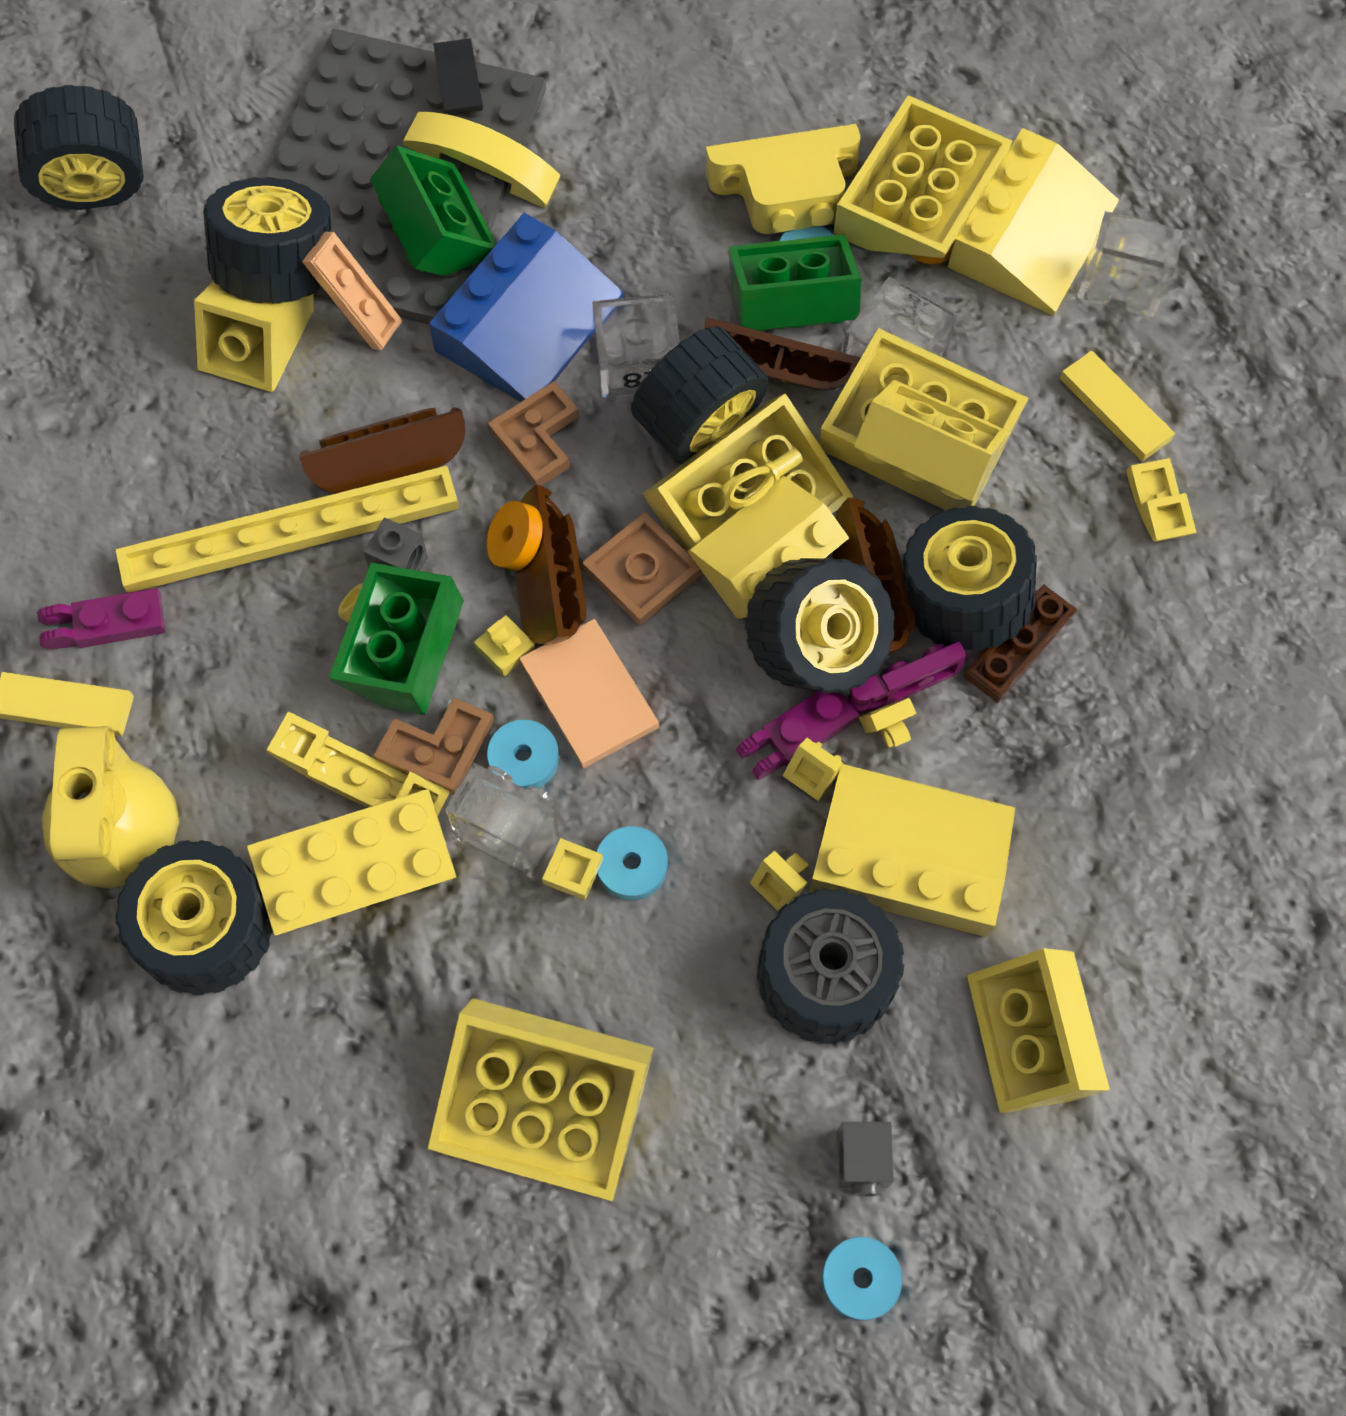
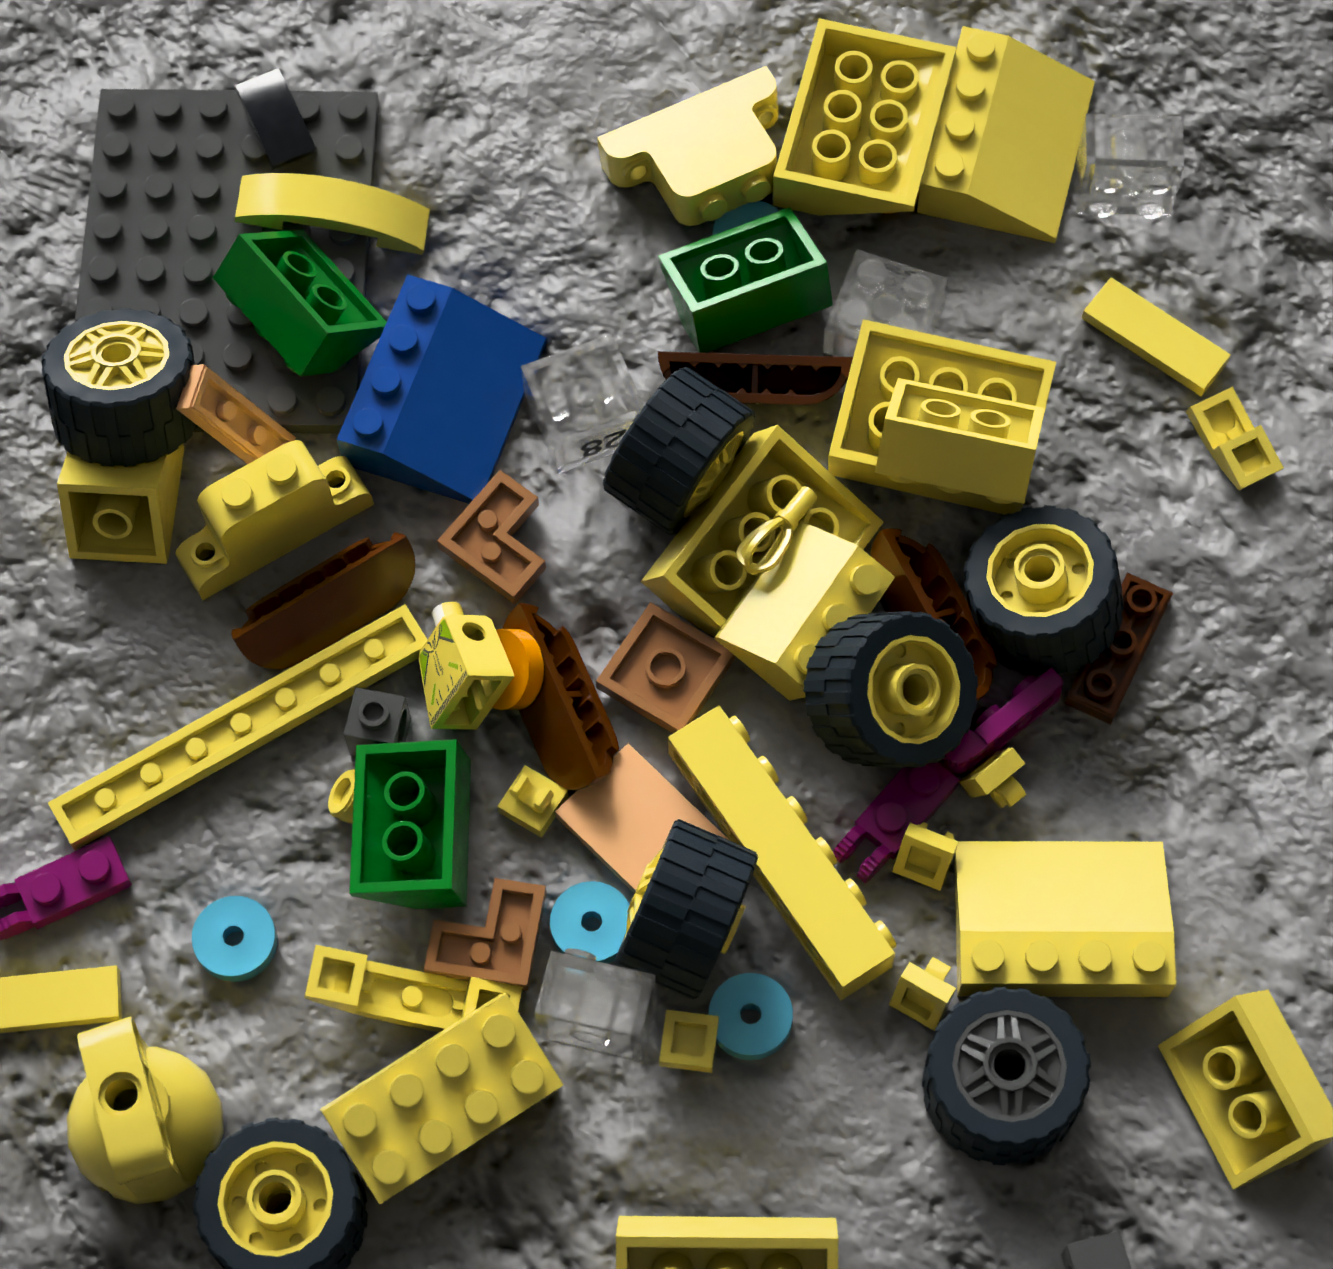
camera: 10 degrees left, 0 degrees up
(227, 676) = (230, 916): none -> medium azure piece
(359, 366) = (268, 513): none -> light yellow brick
(476, 525) = (462, 668): none -> light yellow torso
(598, 757) = (687, 908): none -> black wheel
(695, 738) = (790, 864): none -> light yellow brick

